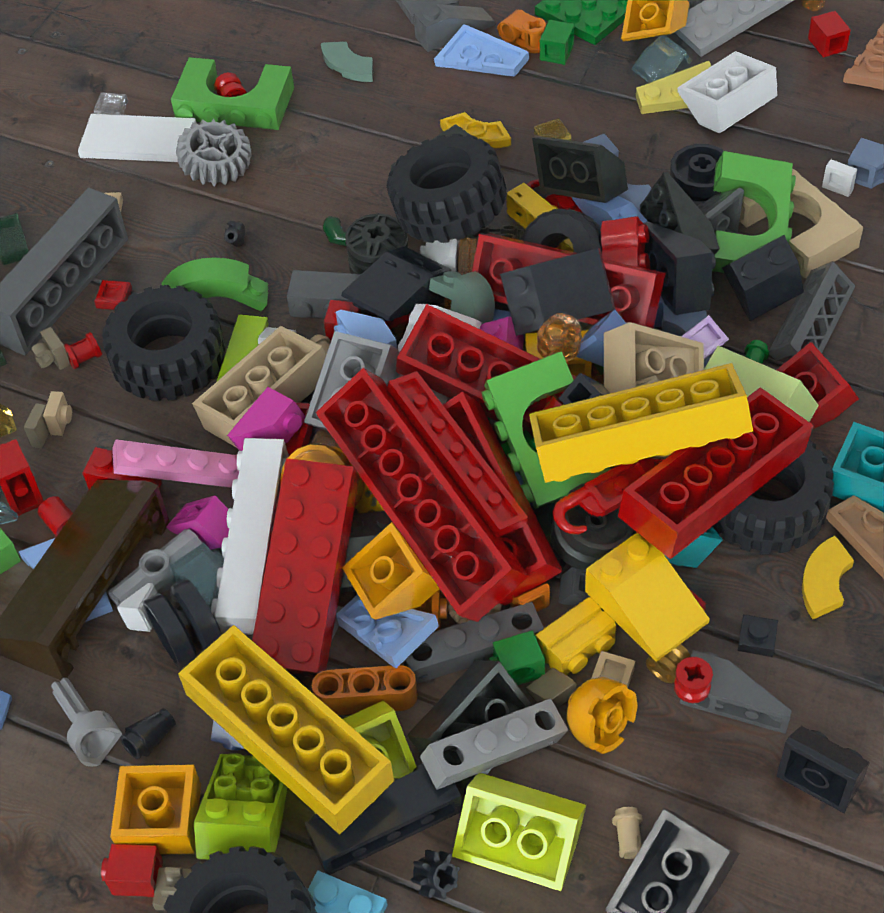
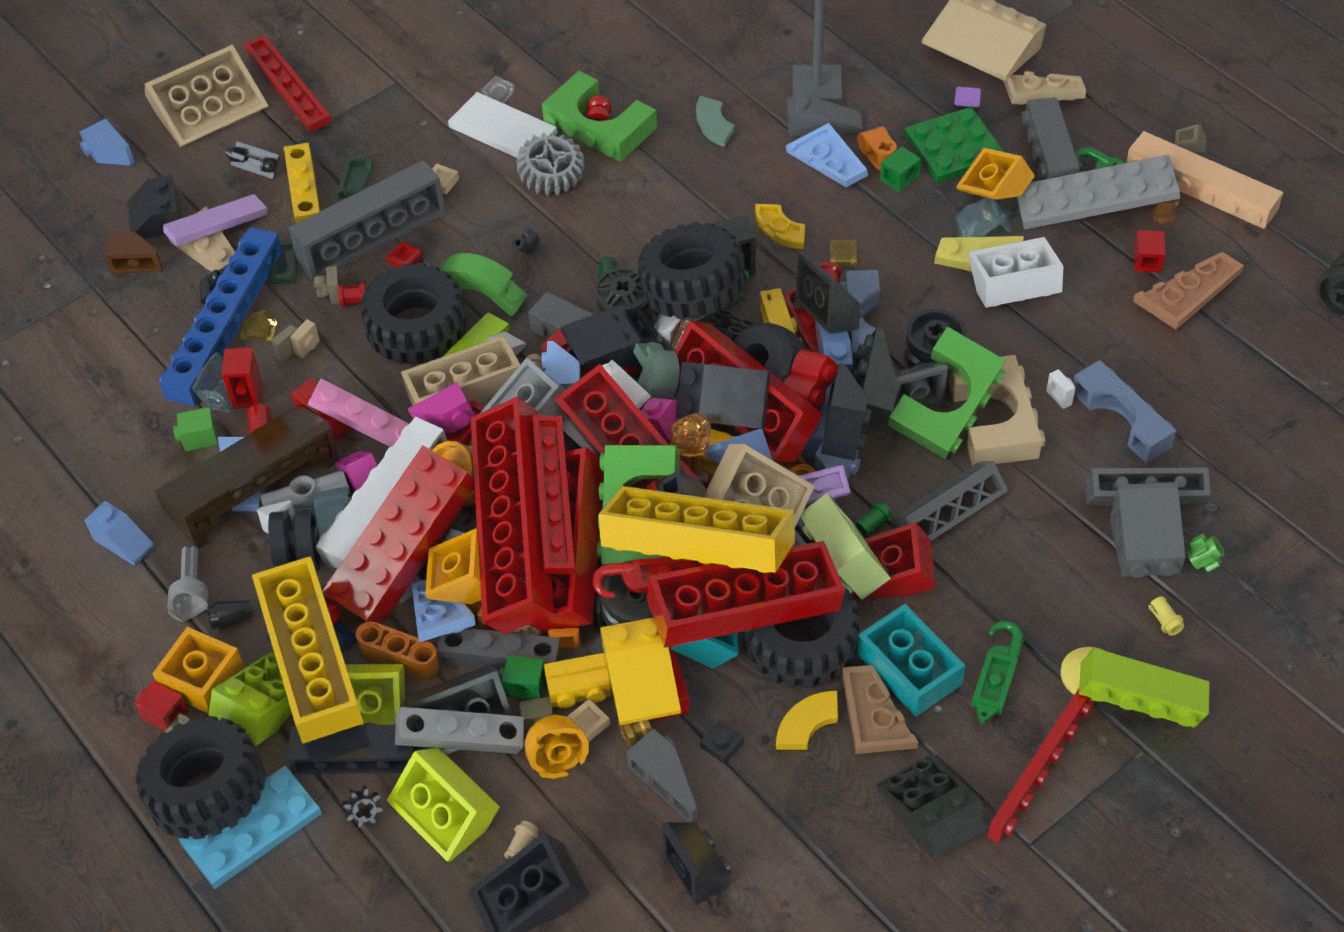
camera: 25 degrees right, 0 degrees up
(697, 688) = (631, 757): red wheel -> none
(765, 277) = (922, 452): black slope -> none

